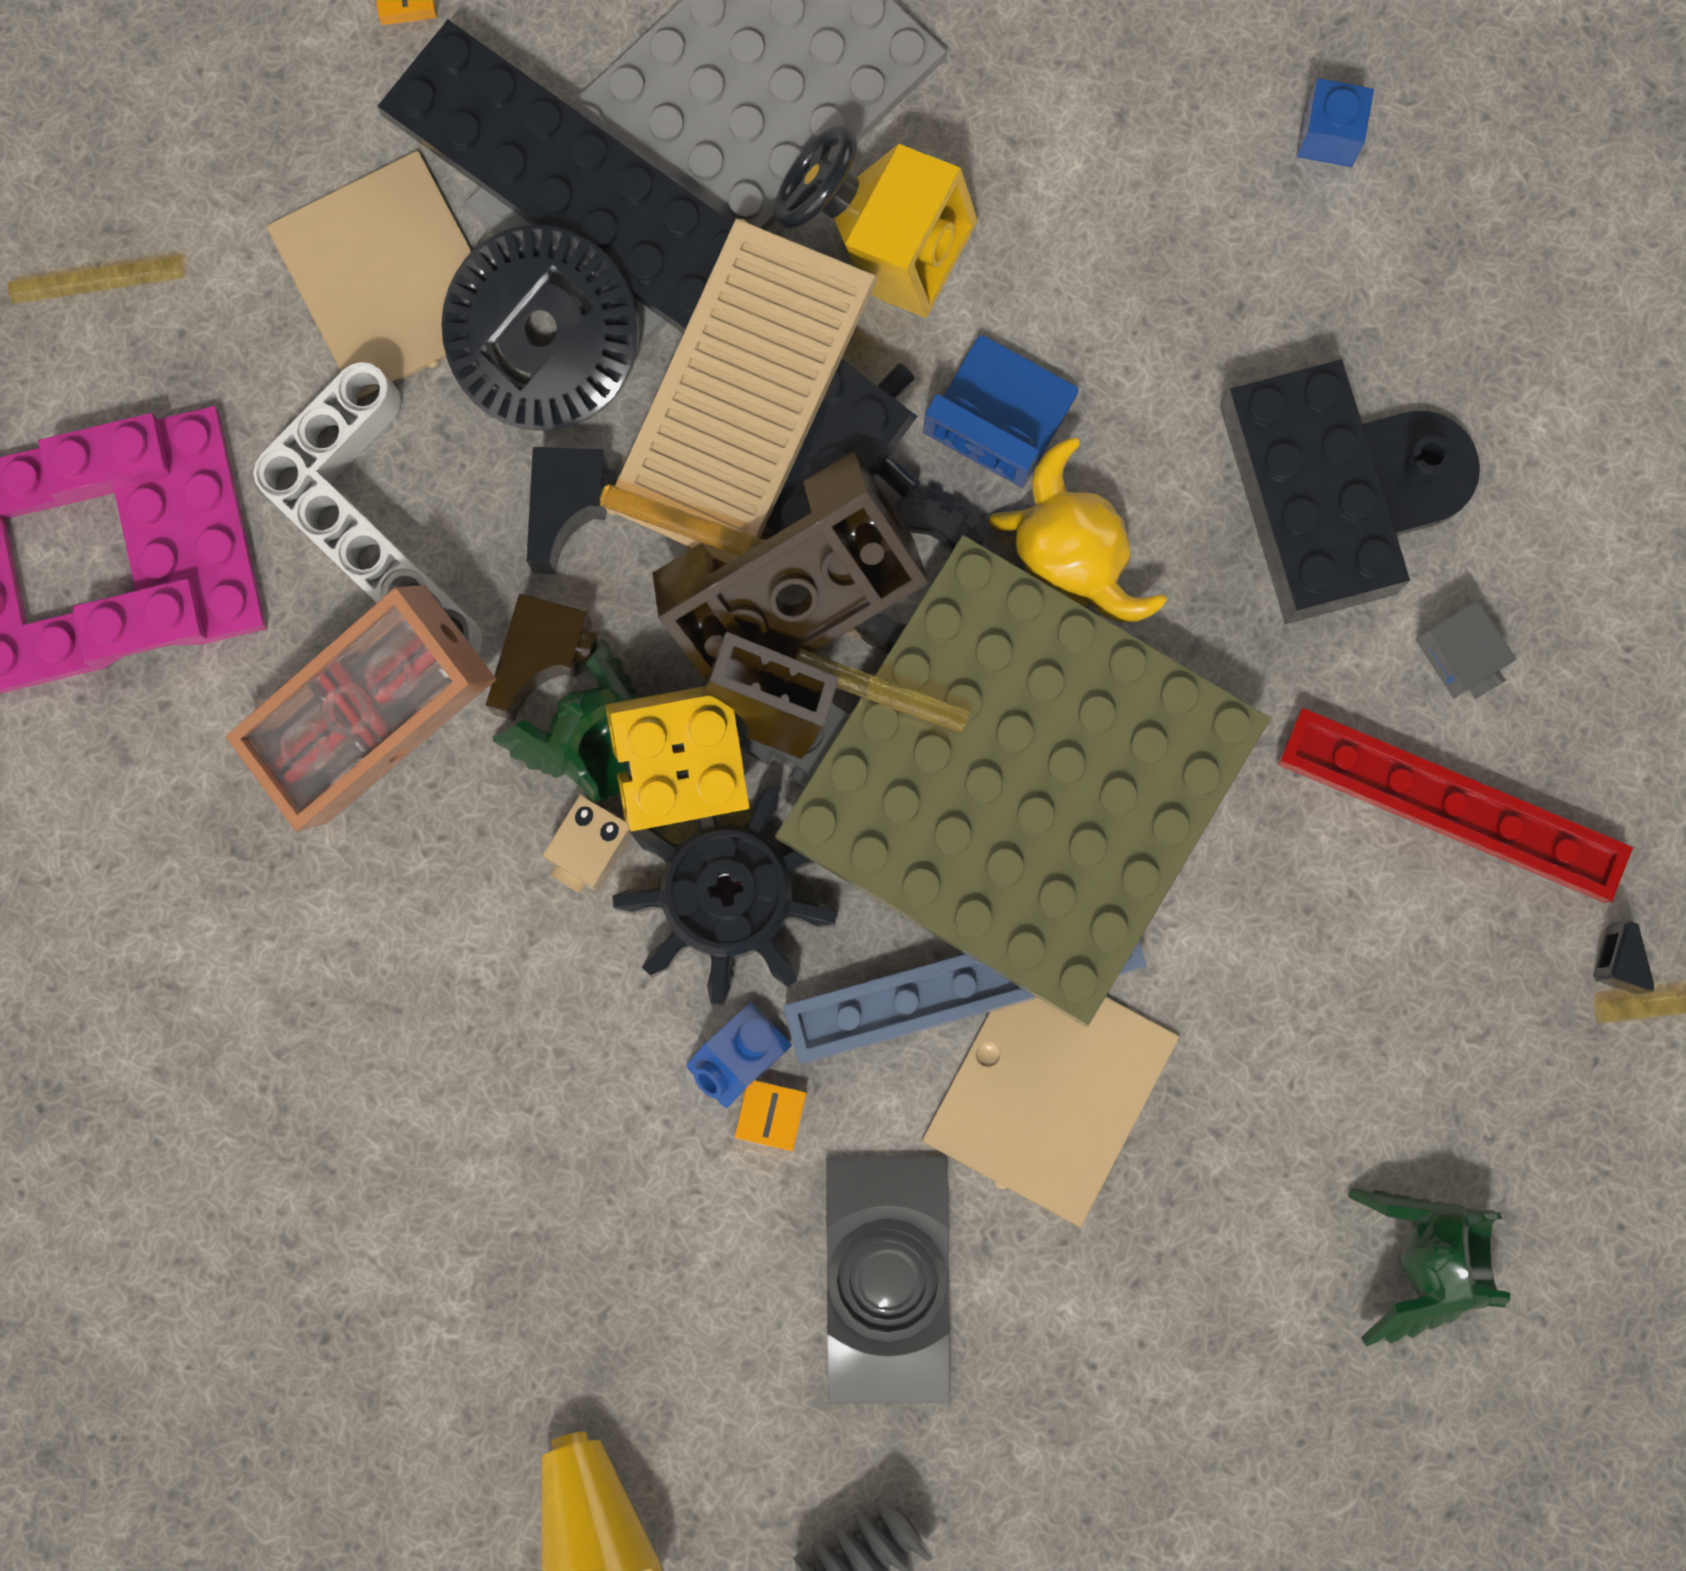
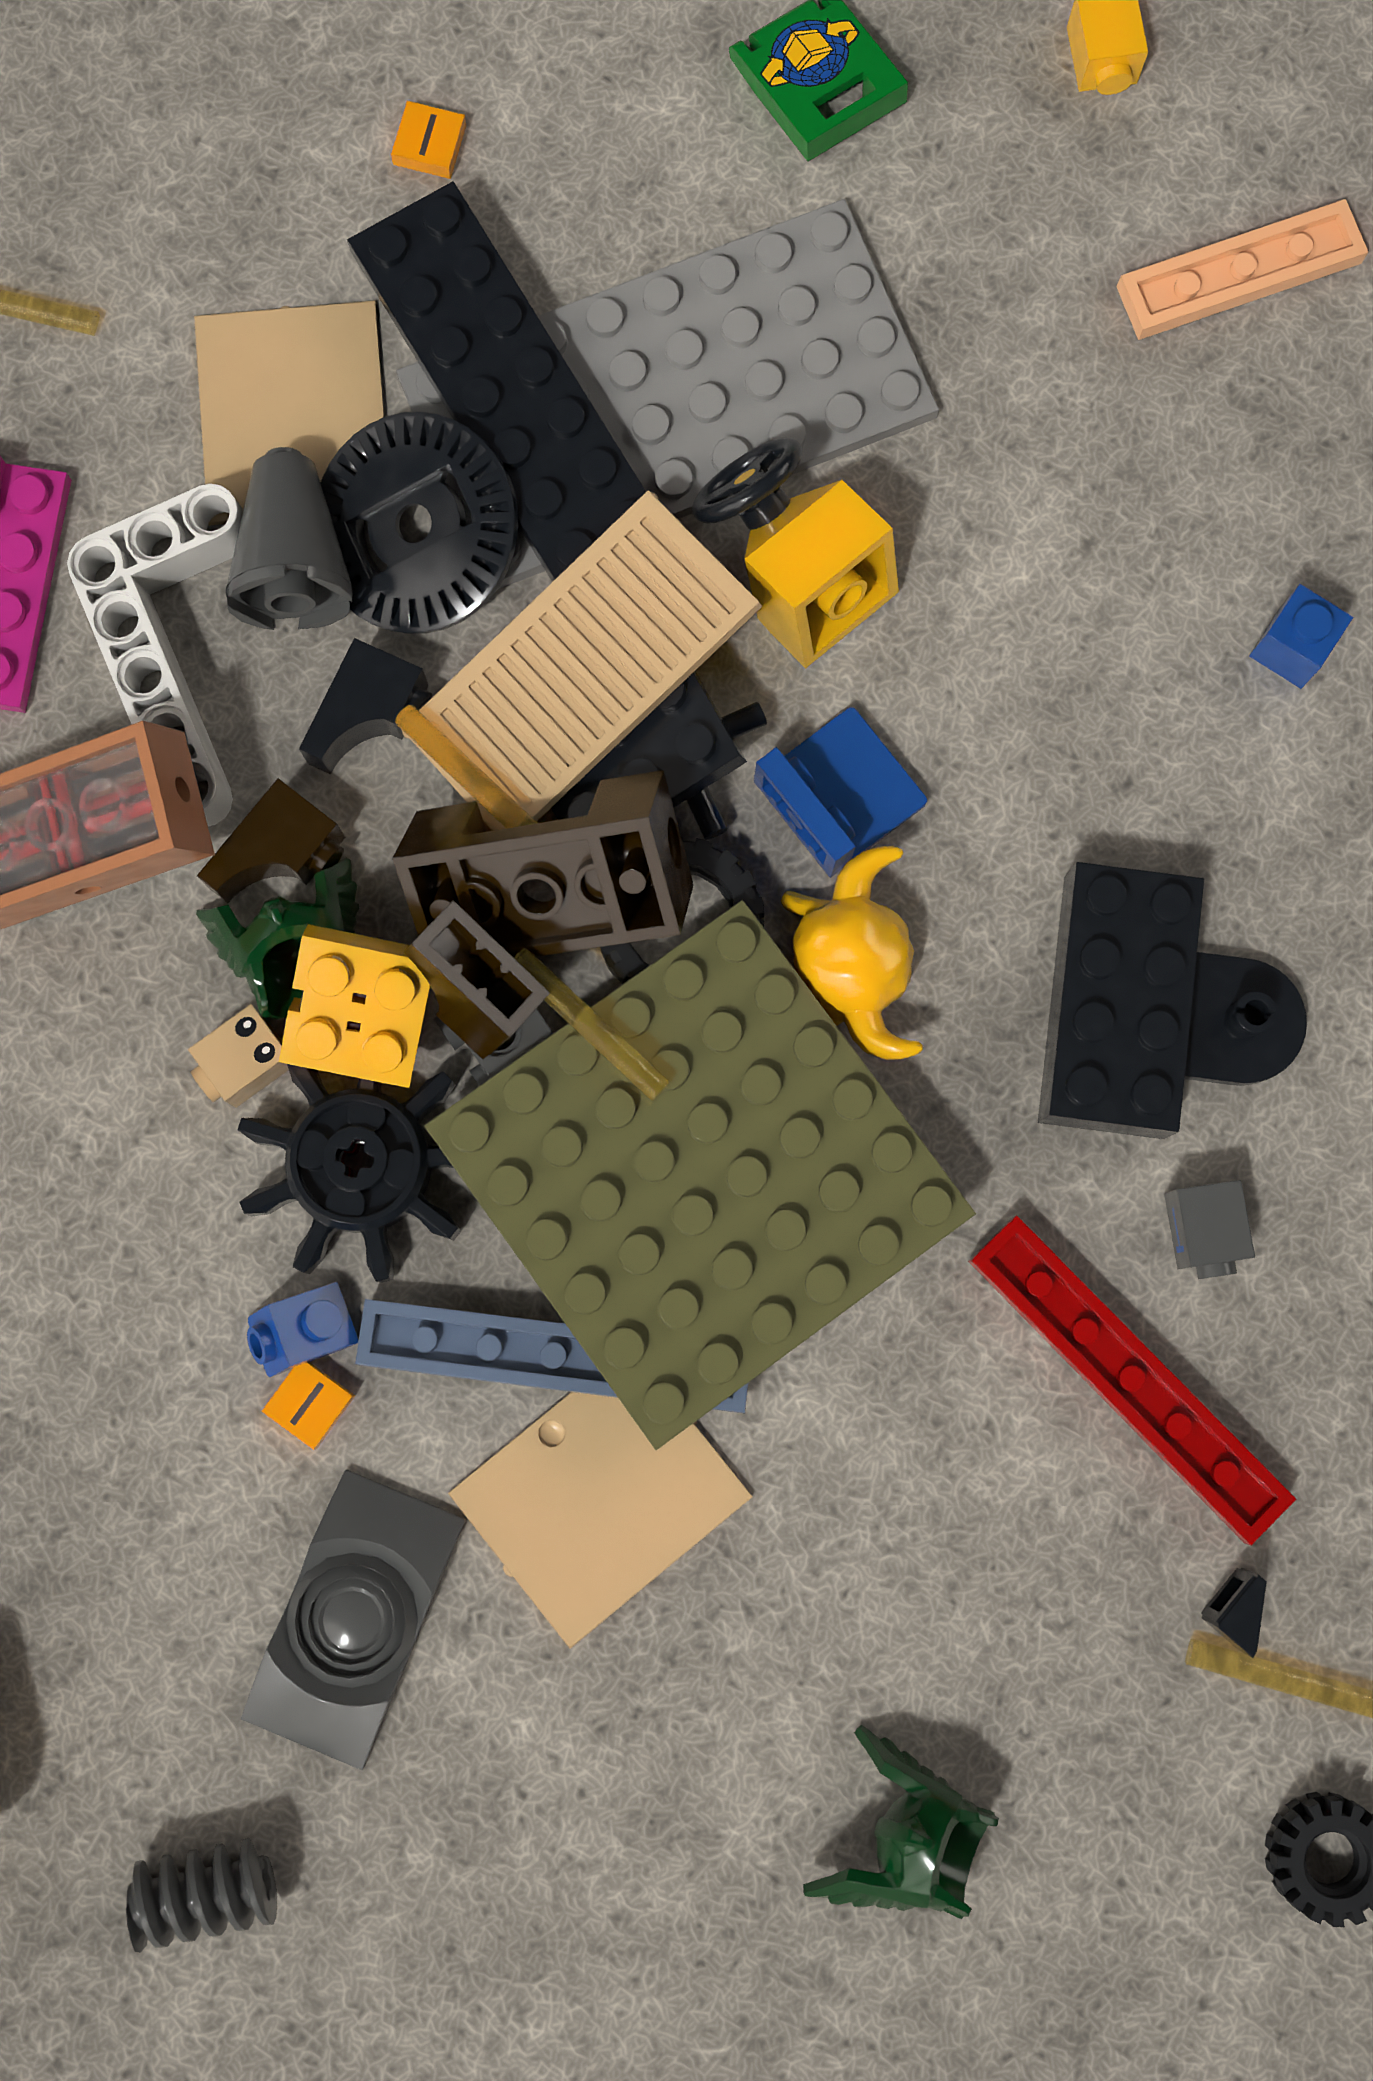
camera: 20 degrees right, 0 degrees up
(440, 393) = (287, 548): none -> dark grey cone

